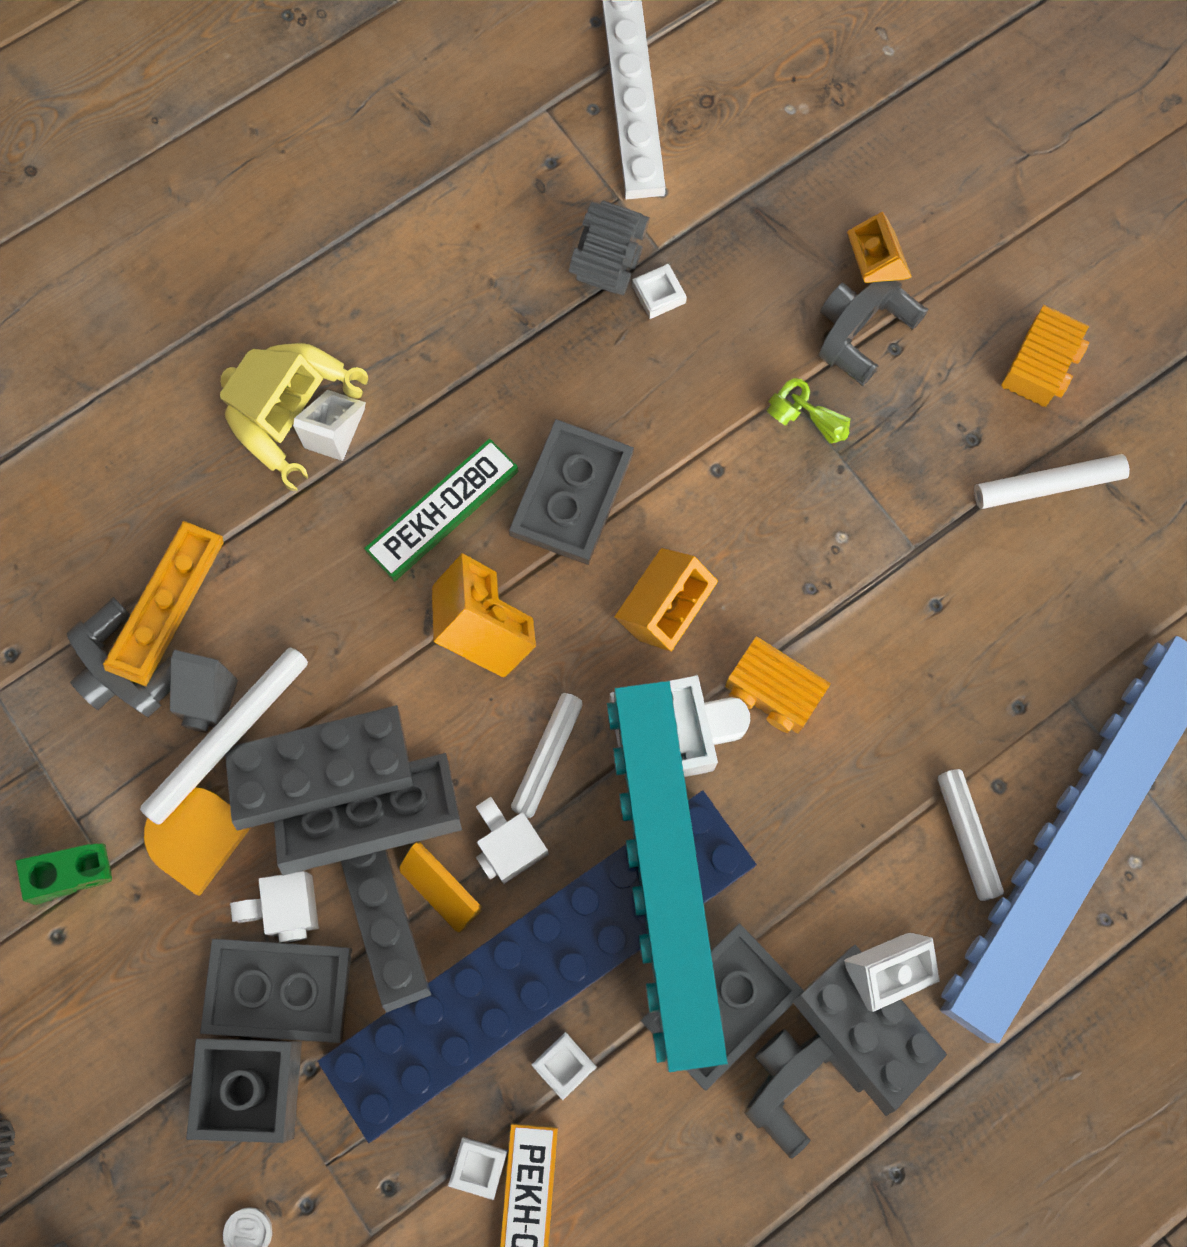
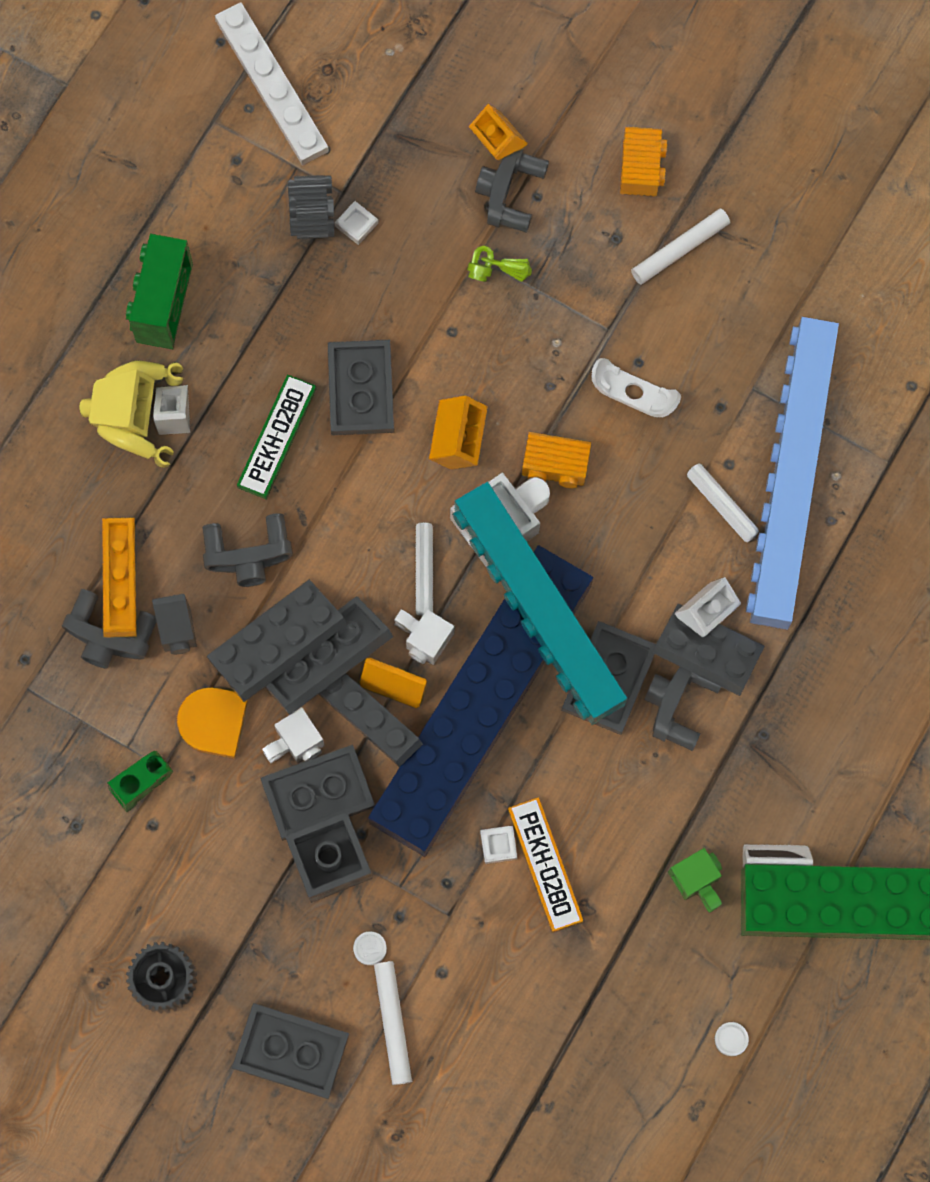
camera: 25 degrees left, 0 degrees up
(223, 736) = (203, 646): white axle -> none
(331, 651) = (249, 561): none -> dark grey connector
(380, 273) = (160, 291): none -> green brick
(474, 620) = (338, 501): light orange panel -> none
(564, 1066) = (525, 759): white tile -> none
(893, 616) = (613, 382): none -> white piece

